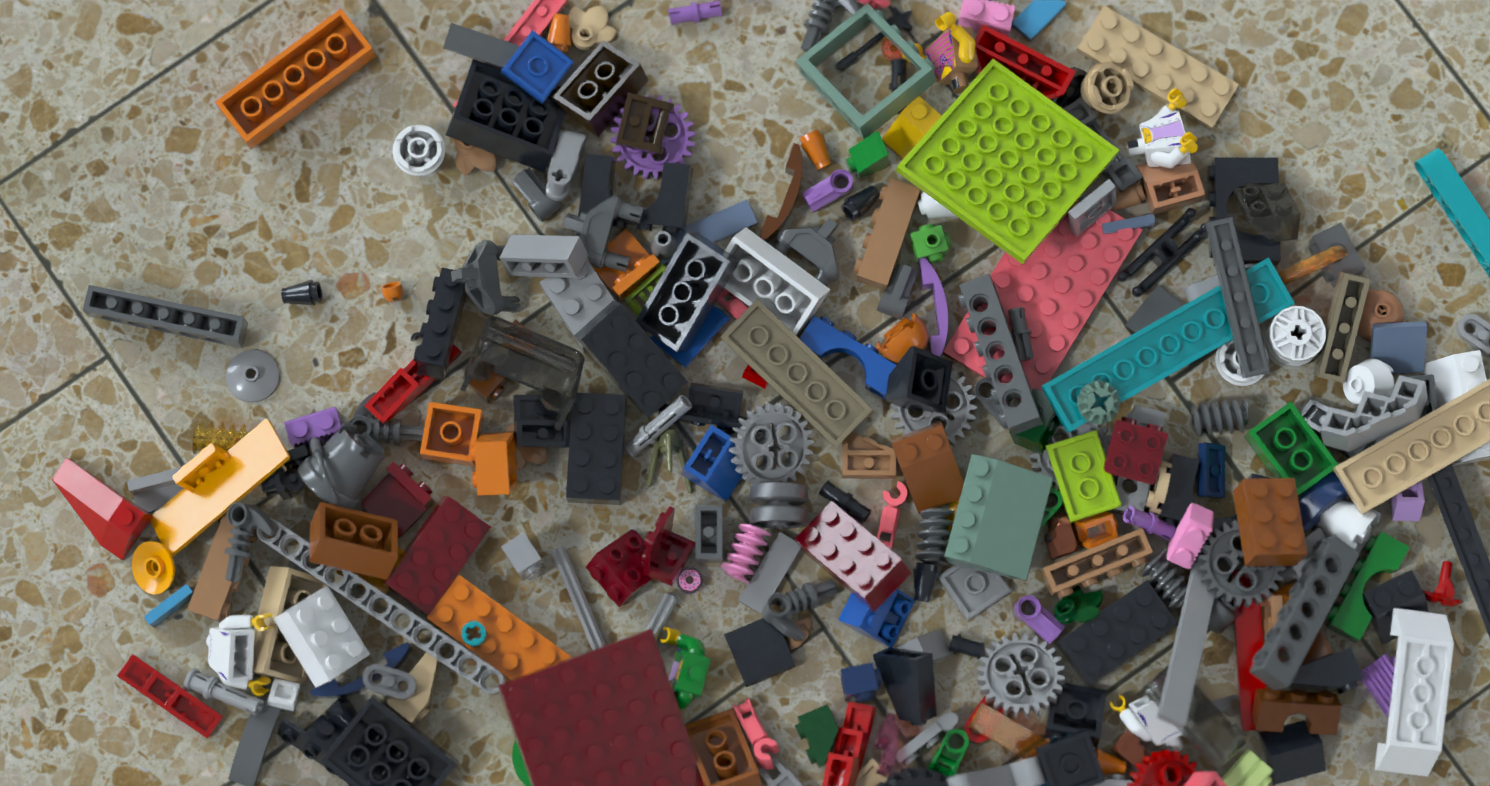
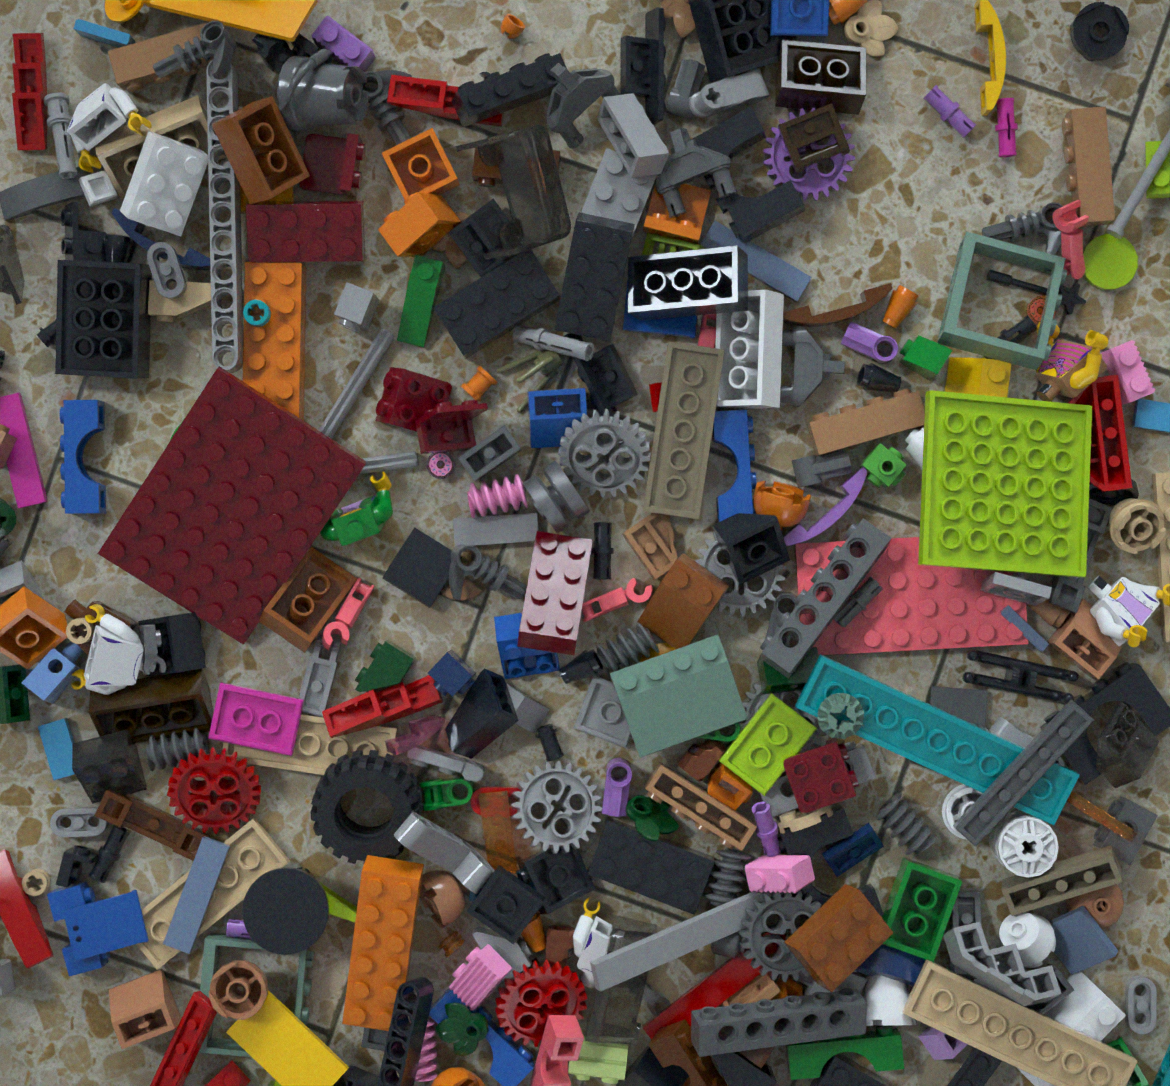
camera: 50 degrees right, 10 degrees up
(496, 212) = (644, 65): none -> black bracket
(552, 506) = (419, 300): none -> green slope
(648, 506) = (479, 384): none -> orange bush
(663, 250) = (717, 240): light grey cone -> none

